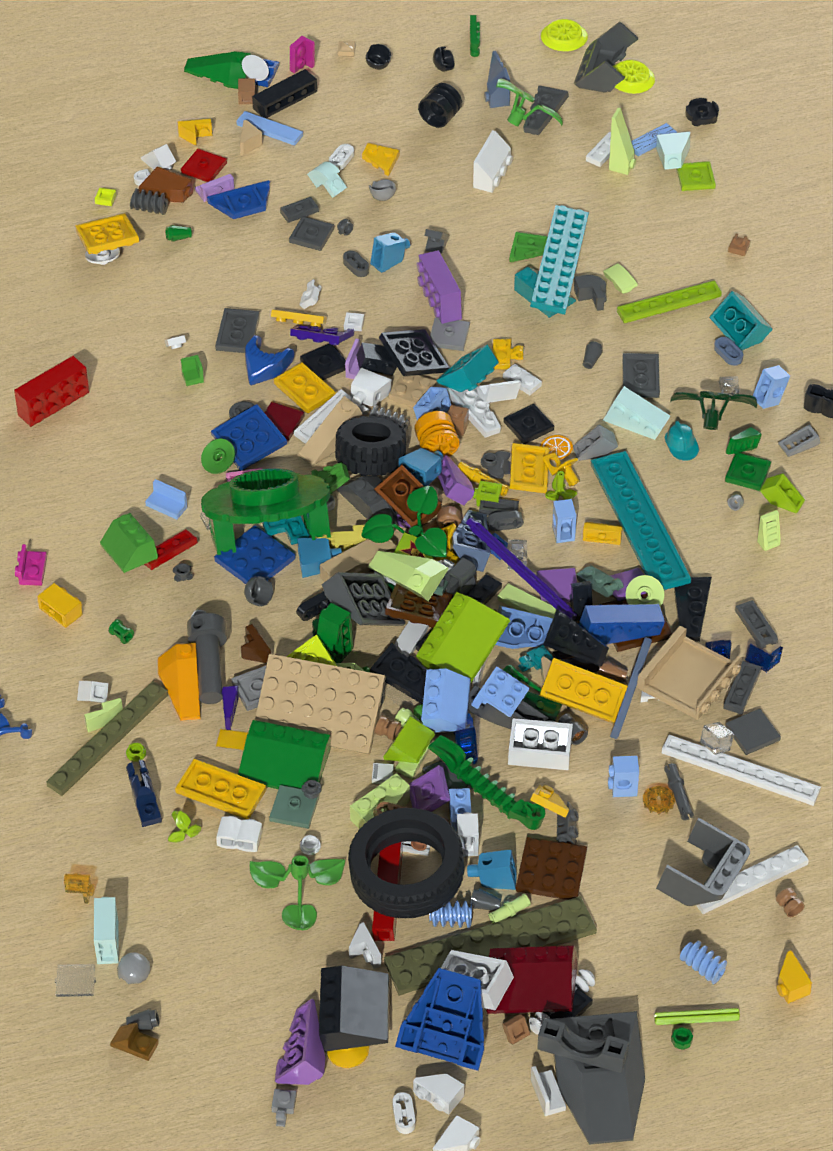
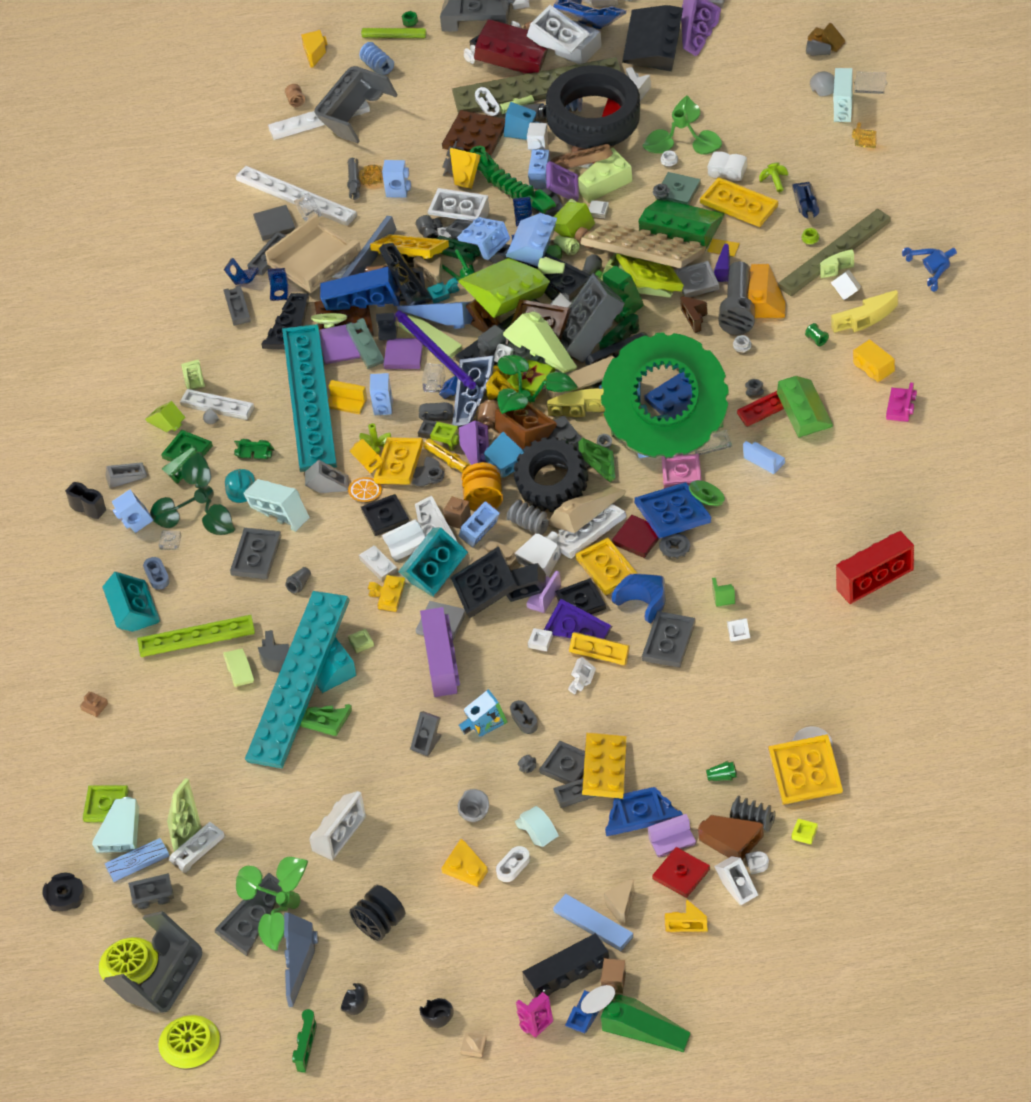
camera: 165 degrees left, 0 degrees up
(63, 660) = (871, 312): none -> light yellow slope
(277, 225) = (604, 765): none -> yellow plate
(416, 670) = (550, 266): none -> yellowish green cone
(518, 313) = (361, 641): none -> yellowish green tile
(545, 900) = (484, 104): none -> white beam
(631, 111) = (151, 891): none -> dark grey bracket
(679, 473) = (246, 447): none -> green hinge
(729, 518) = (219, 404): none -> white tile

